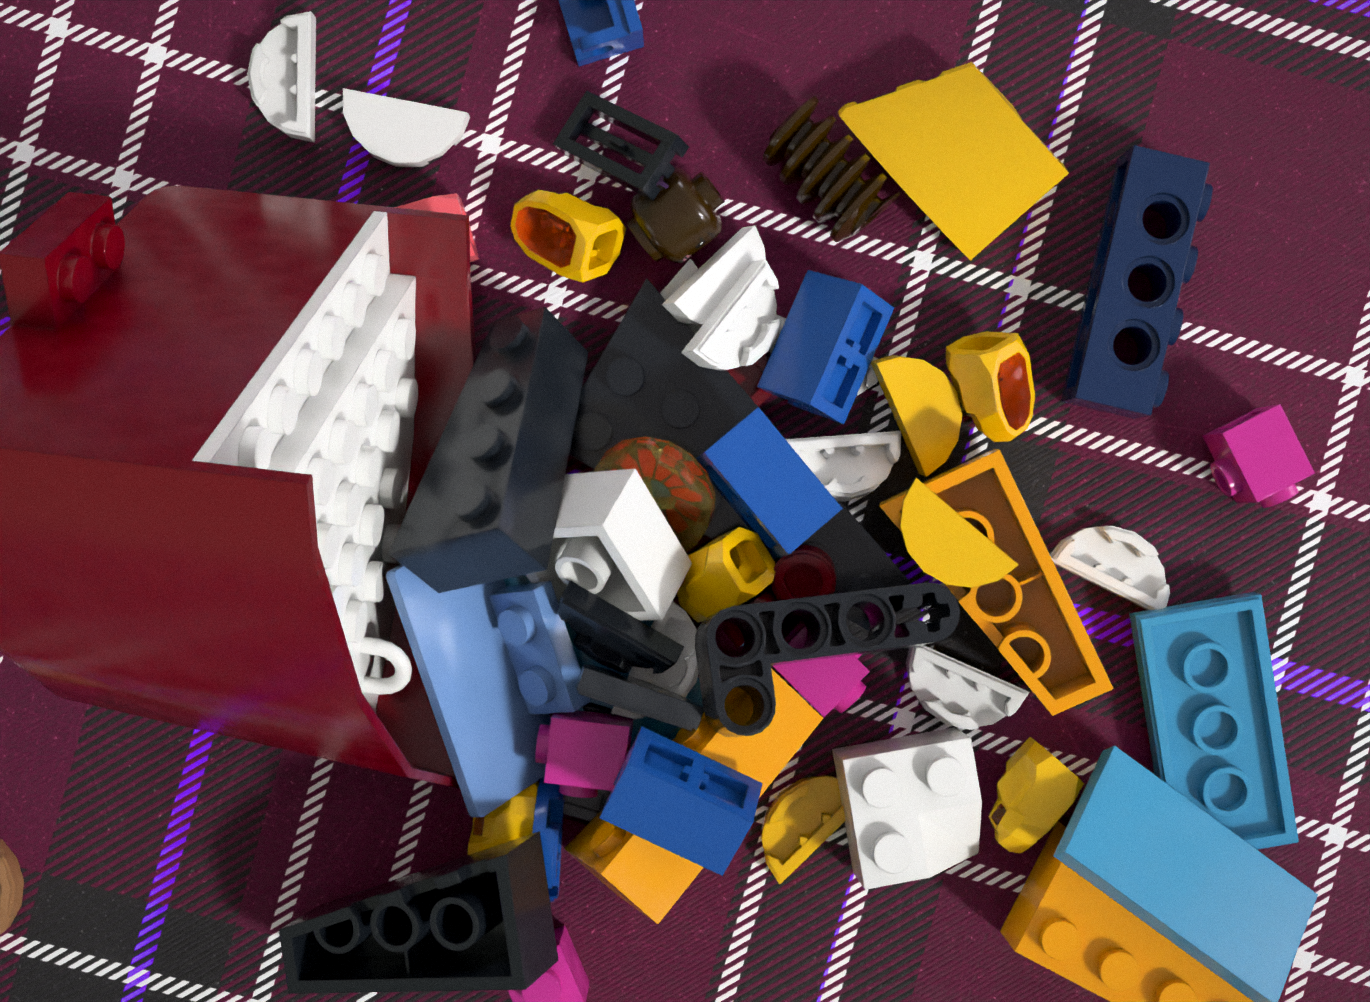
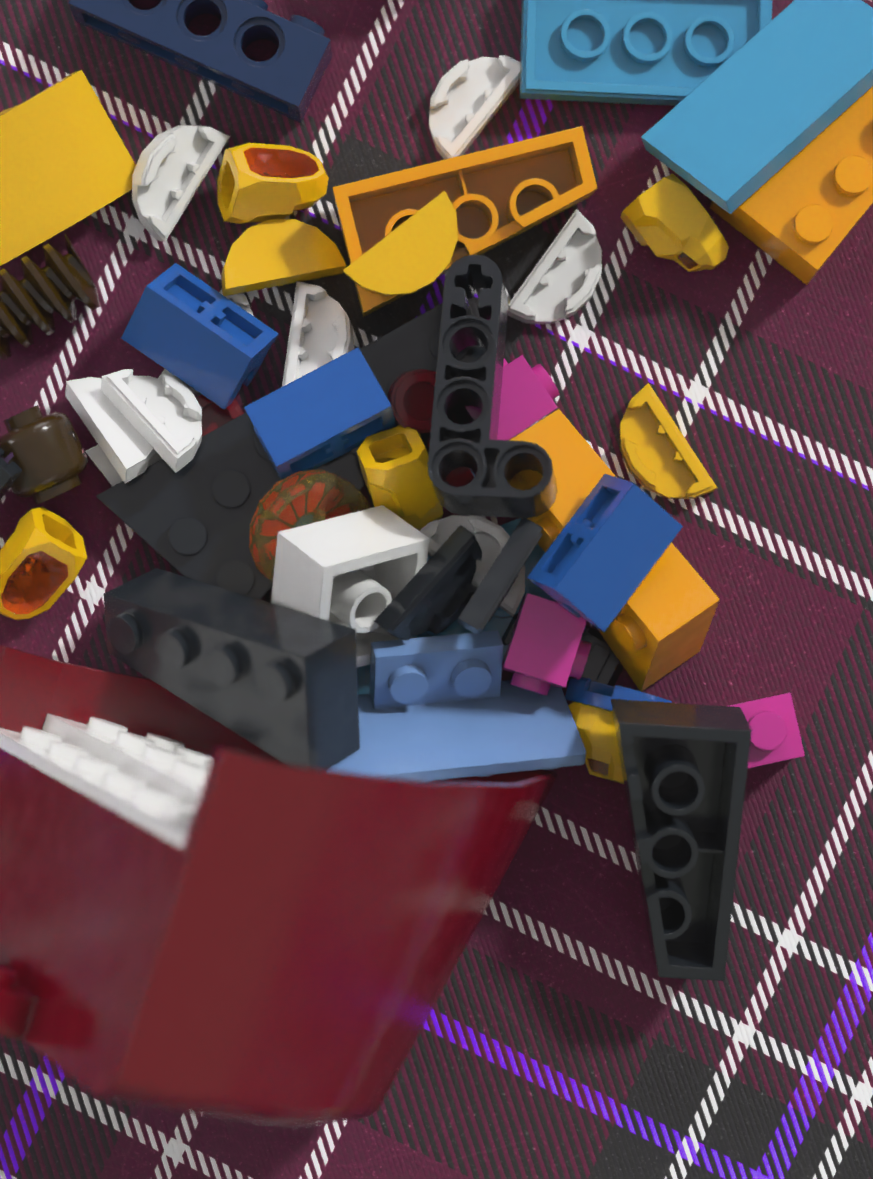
camera: 85 degrees left, 5 degrees down
(909, 805) = (661, 344): white slope -> none
(983, 285) = (171, 174): none -> white tile

